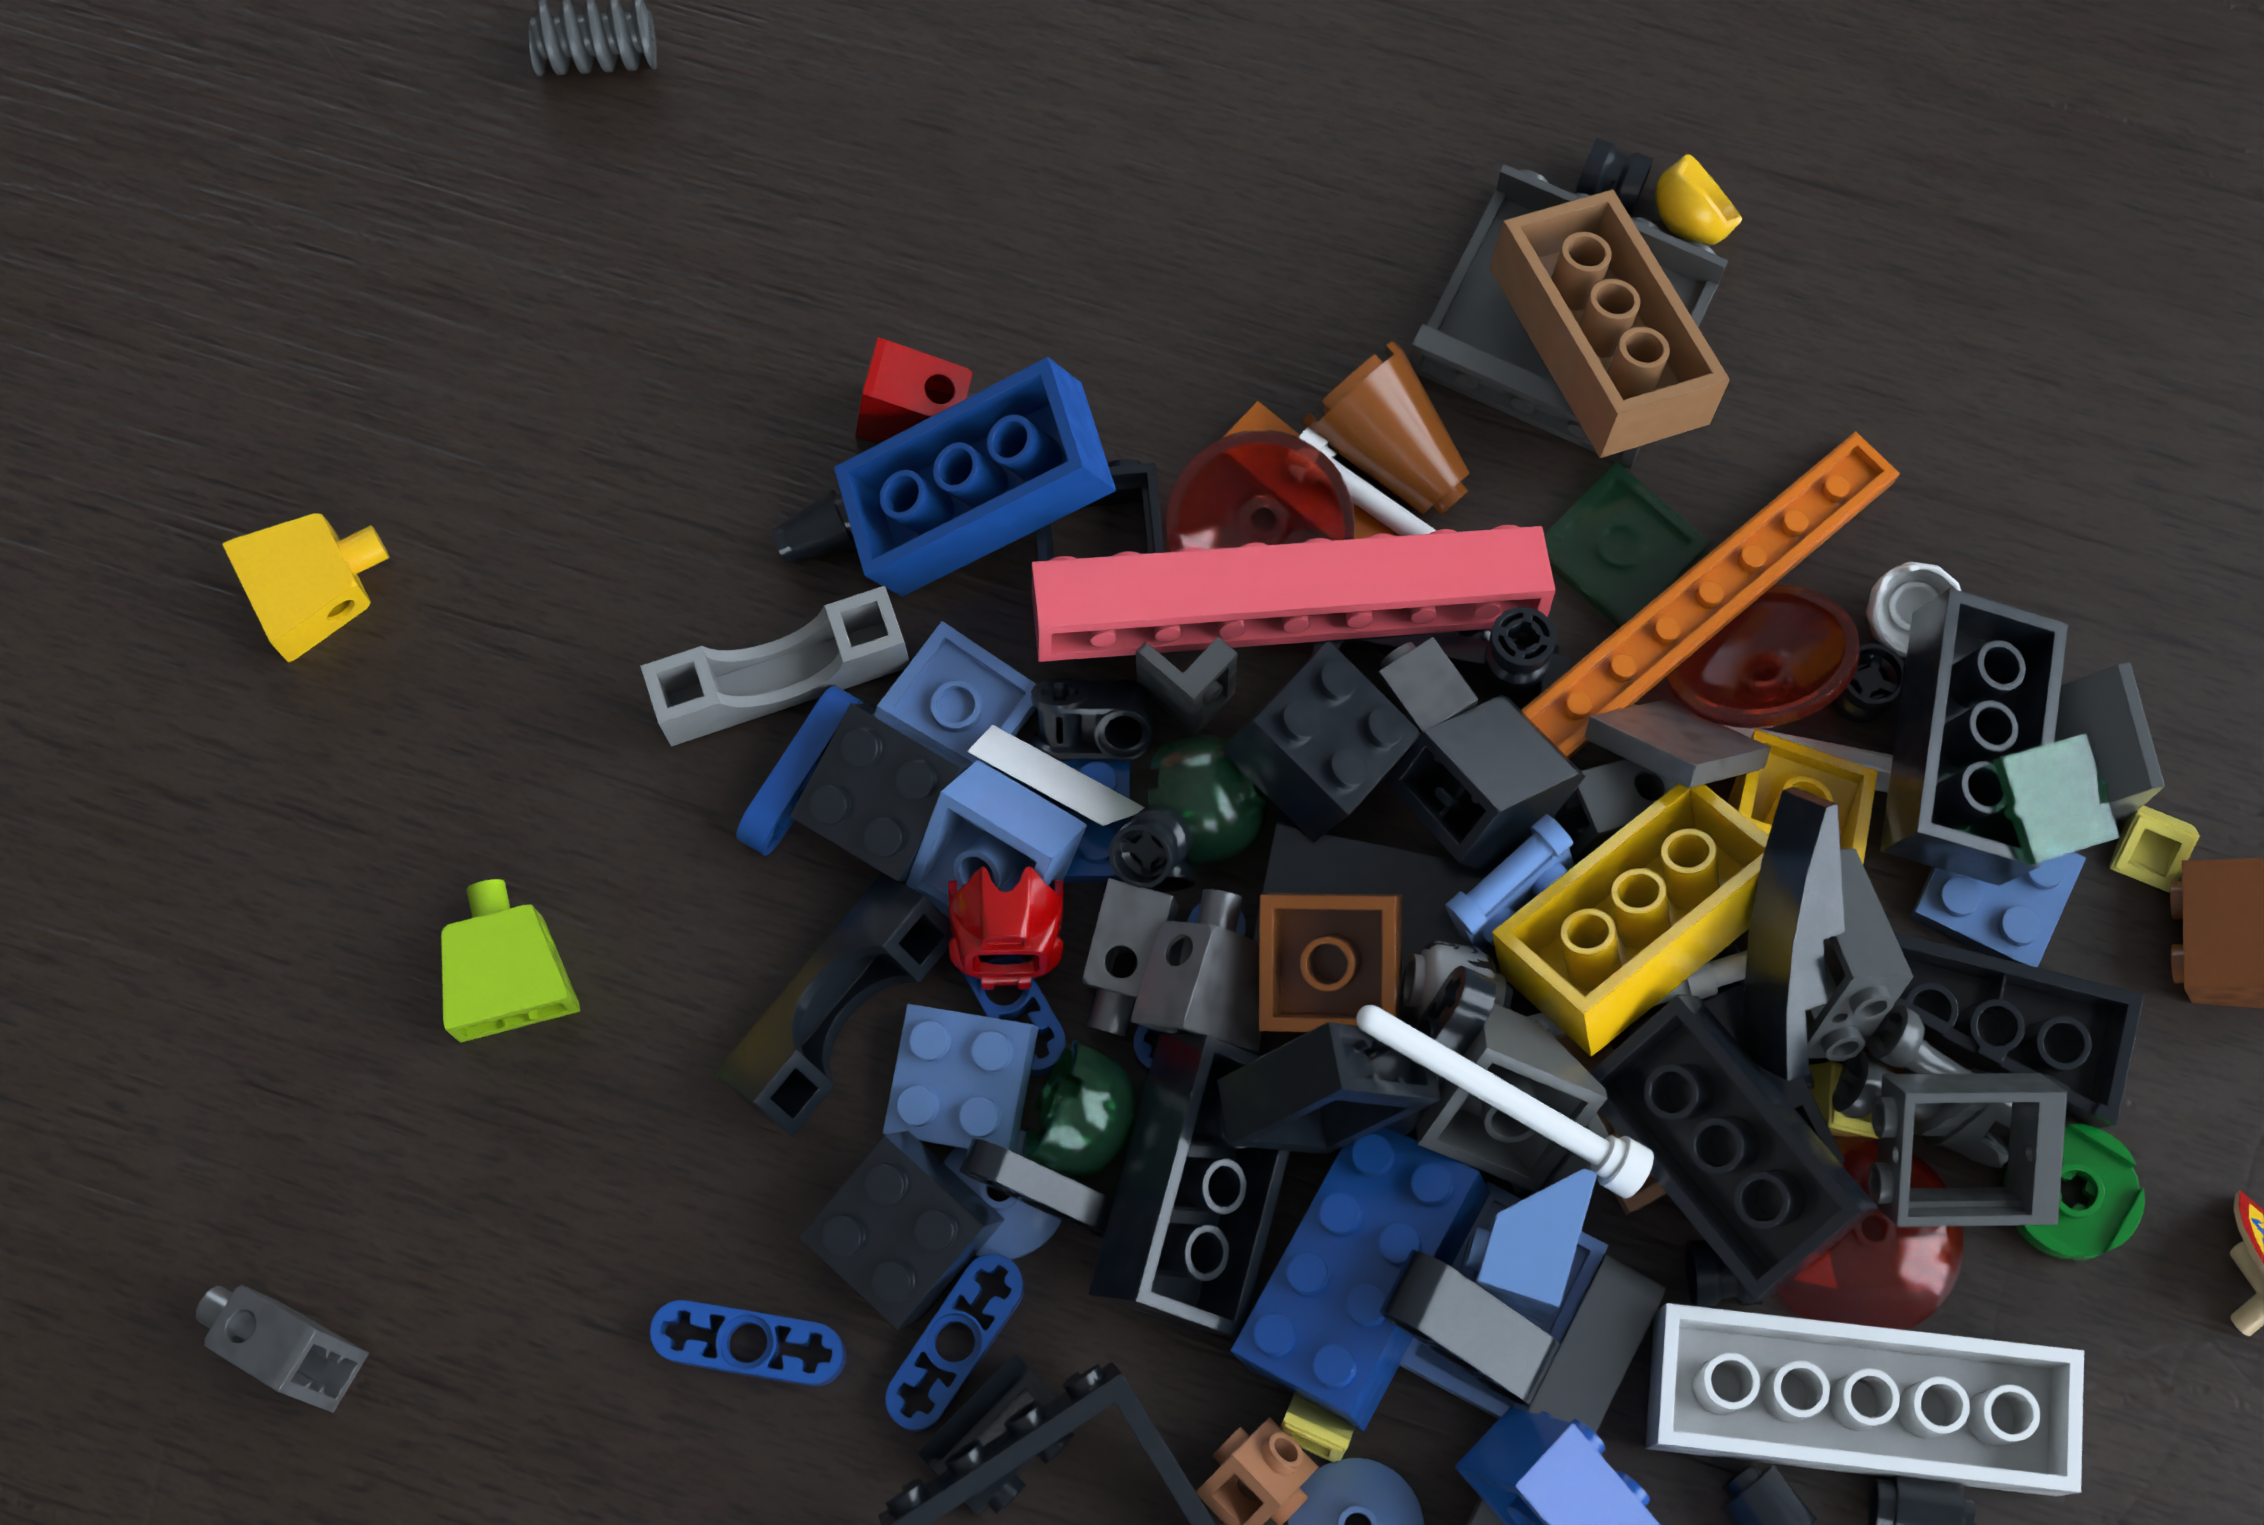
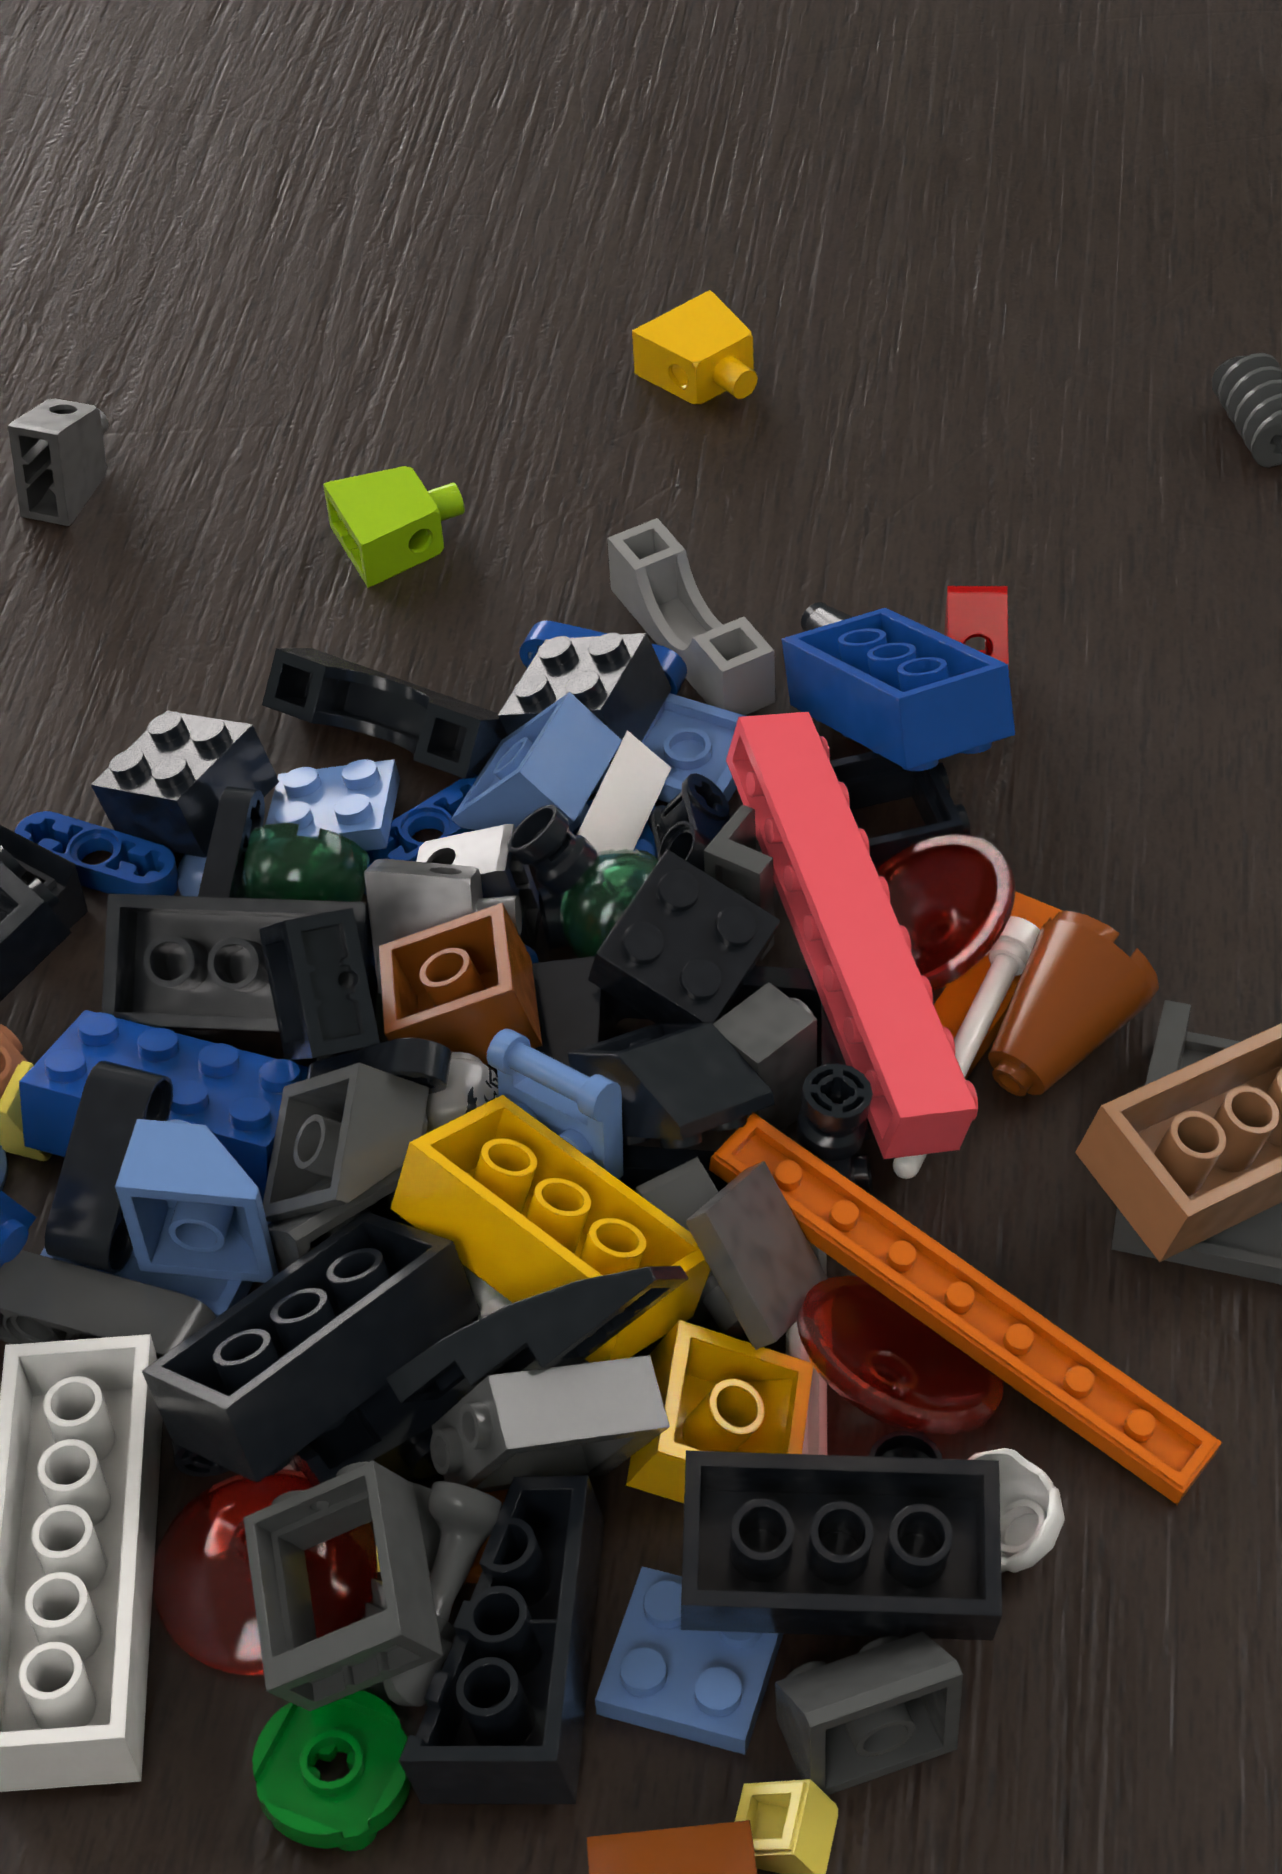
camera: 80 degrees right, 25 degrees down
(703, 1316) = (77, 711): blue beam -> none
(1005, 924) = (466, 783): red helmet -> none
(1619, 1163) = (274, 1230): white piece -> none
(1621, 546) = (1019, 1235): clear green tile -> none
(2056, 799) = (769, 1614): piece -> none

